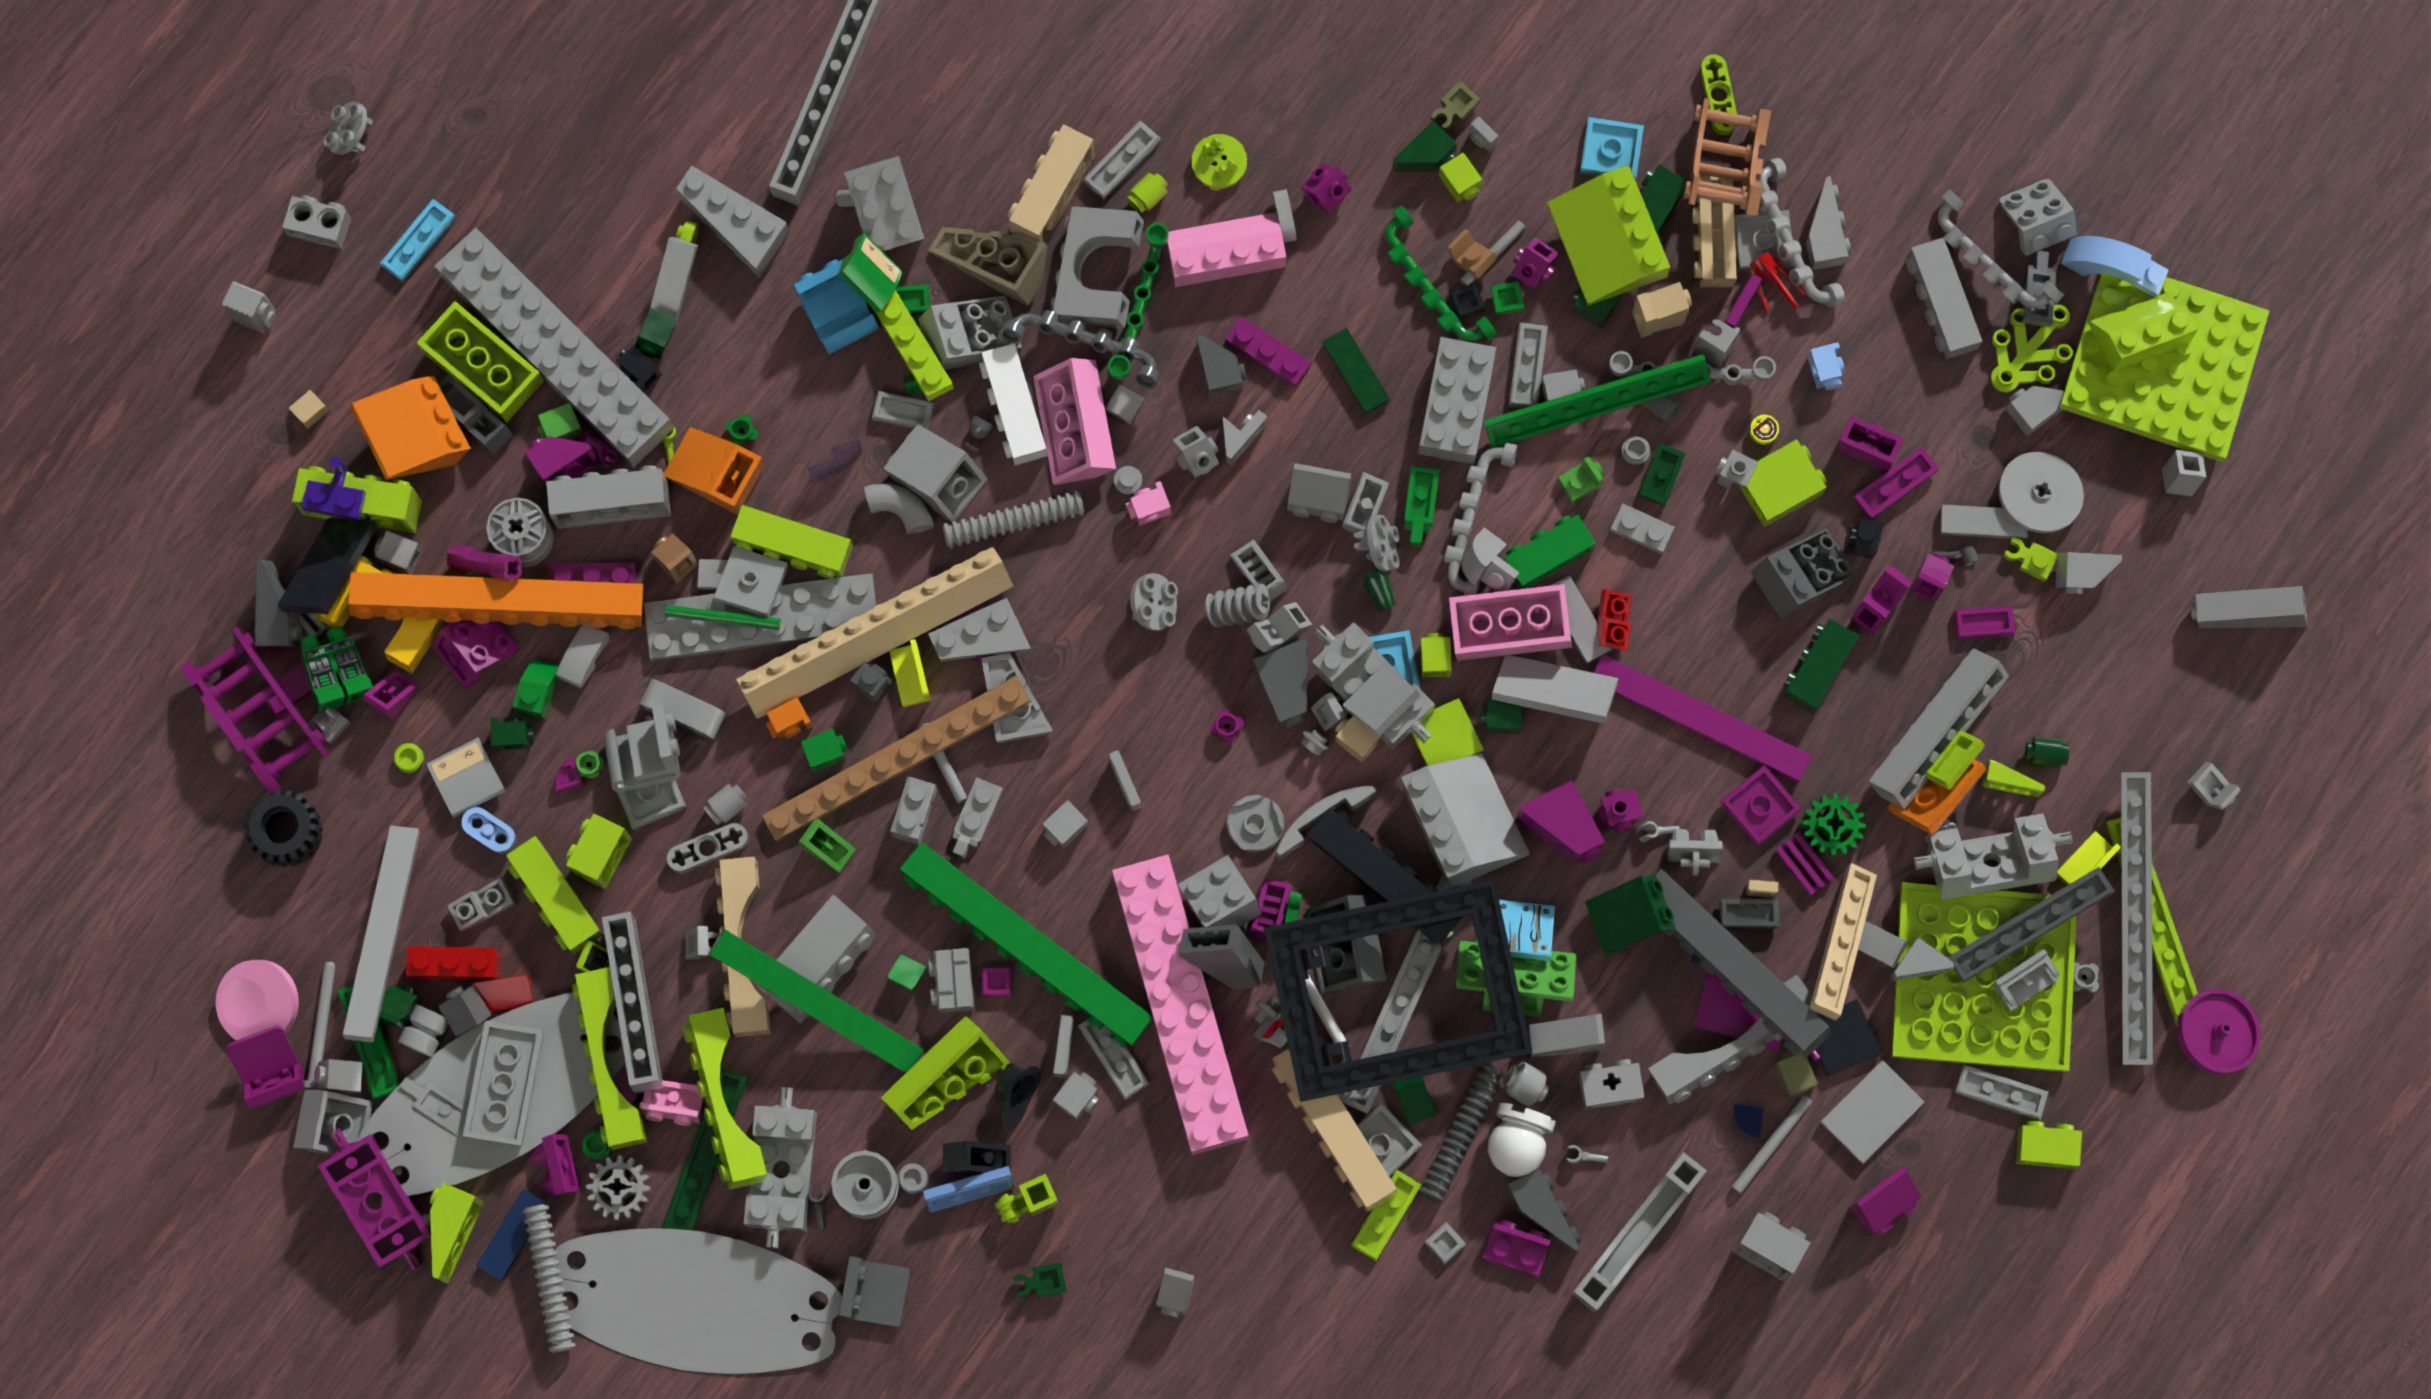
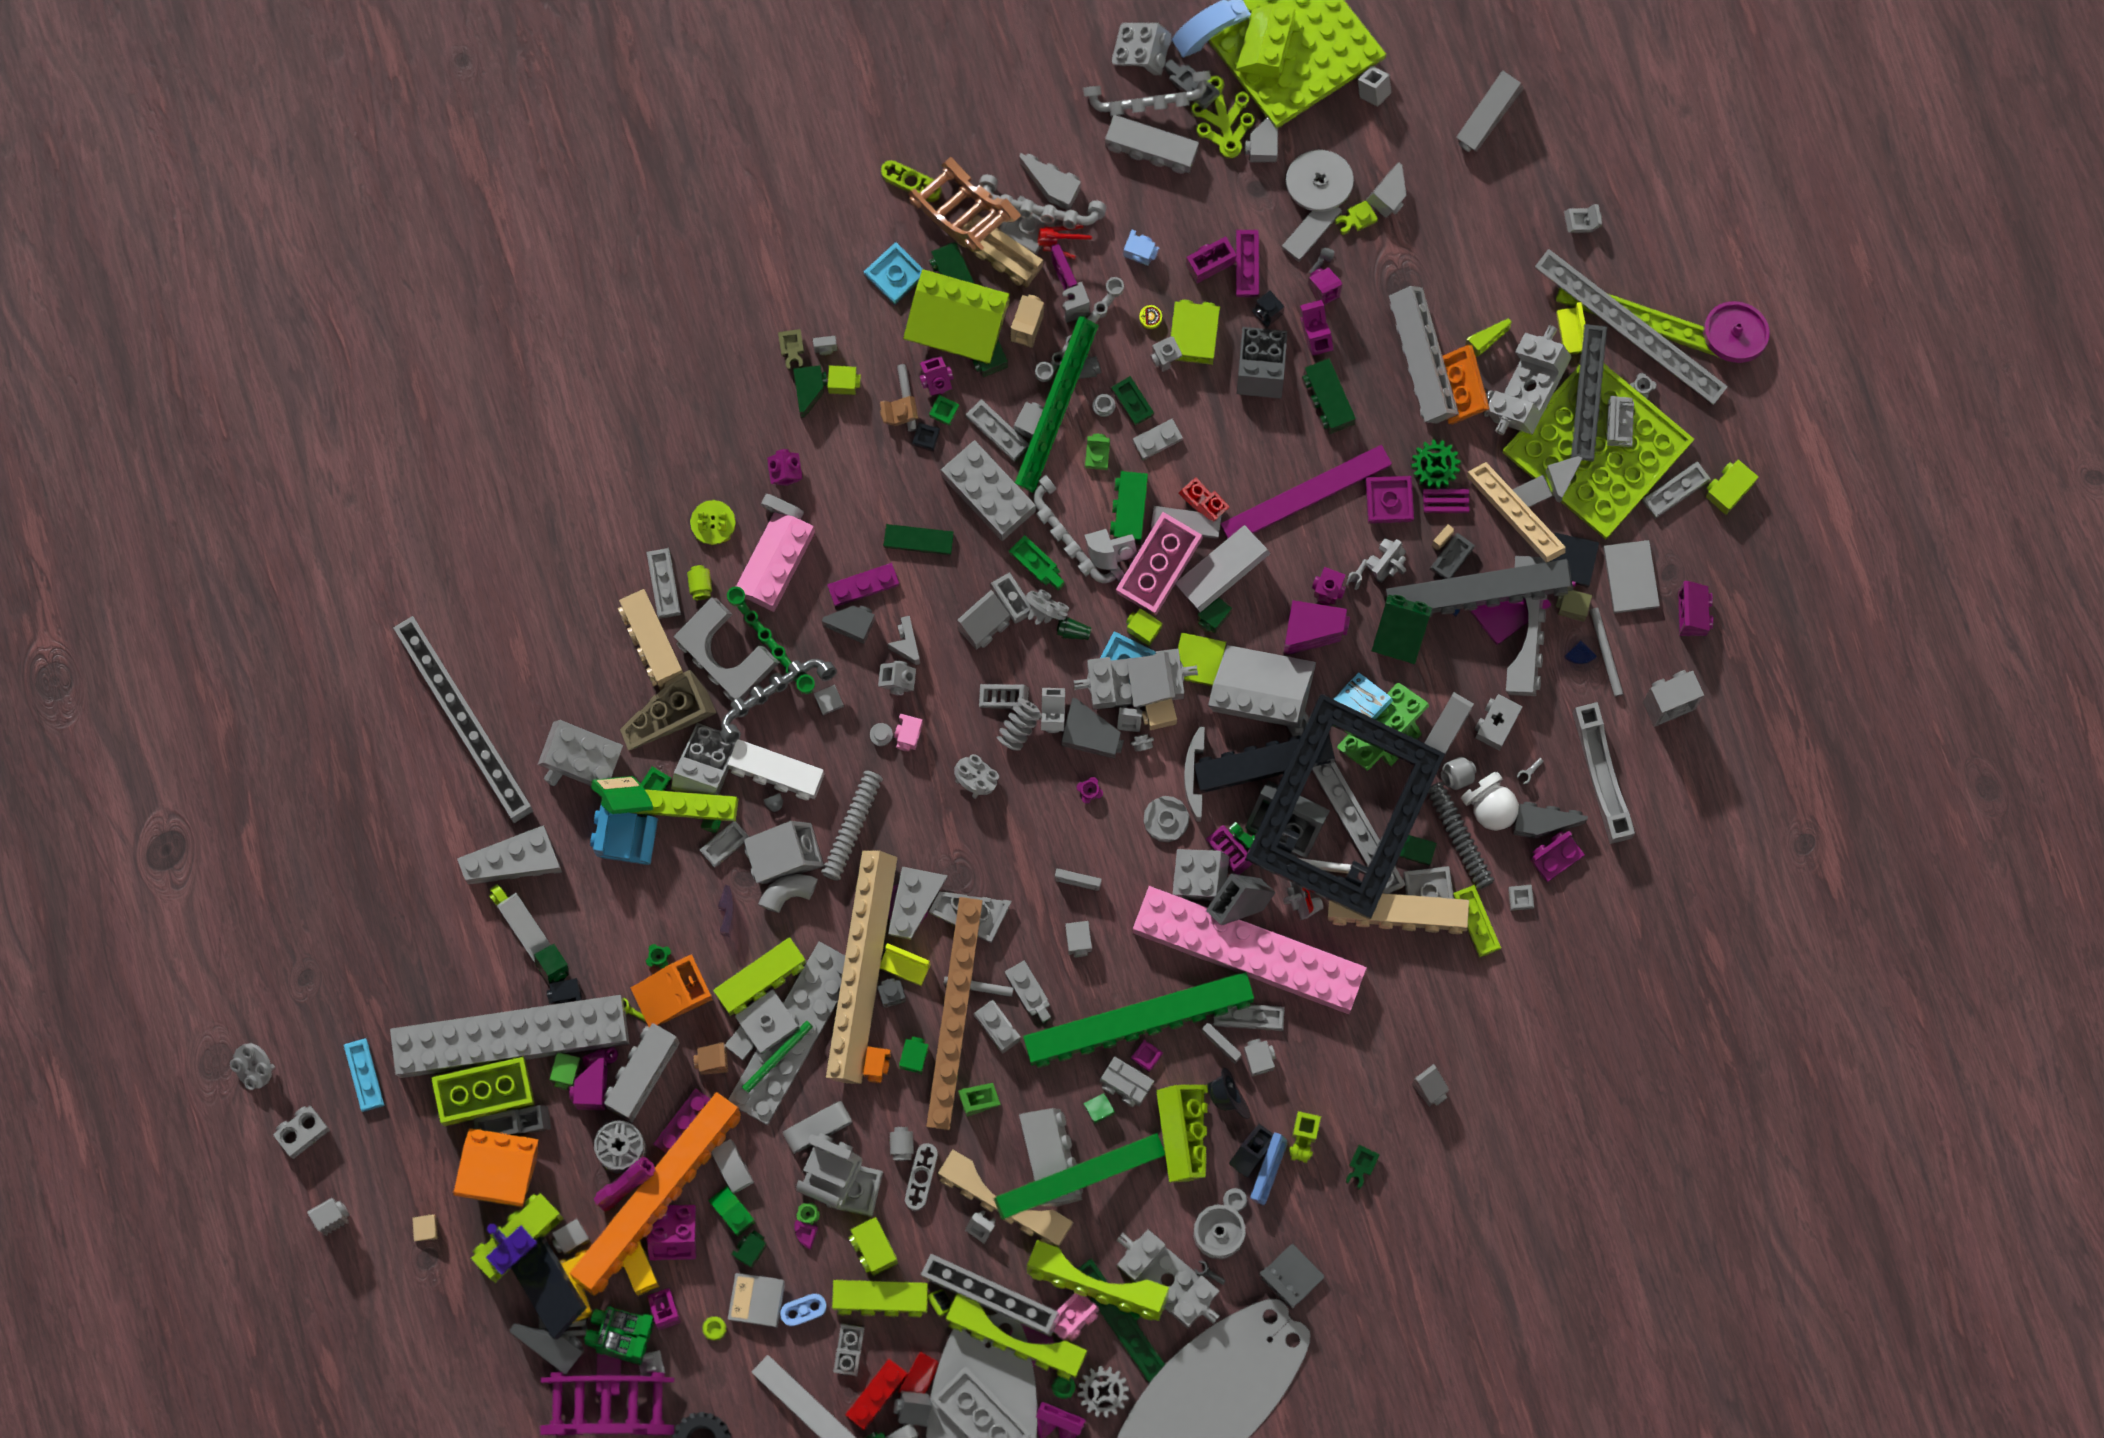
camera: 55 degrees left, 0 degrees up
(1074, 421) = (816, 739): bright pink slope -> none
(1431, 297) = (886, 455): green bar -> none
(1955, 759) = (1452, 359): lime tile -> none
(1984, 622) = (1375, 277): magenta tile -> none
(2047, 752) = (1486, 301): dark green brick -> none

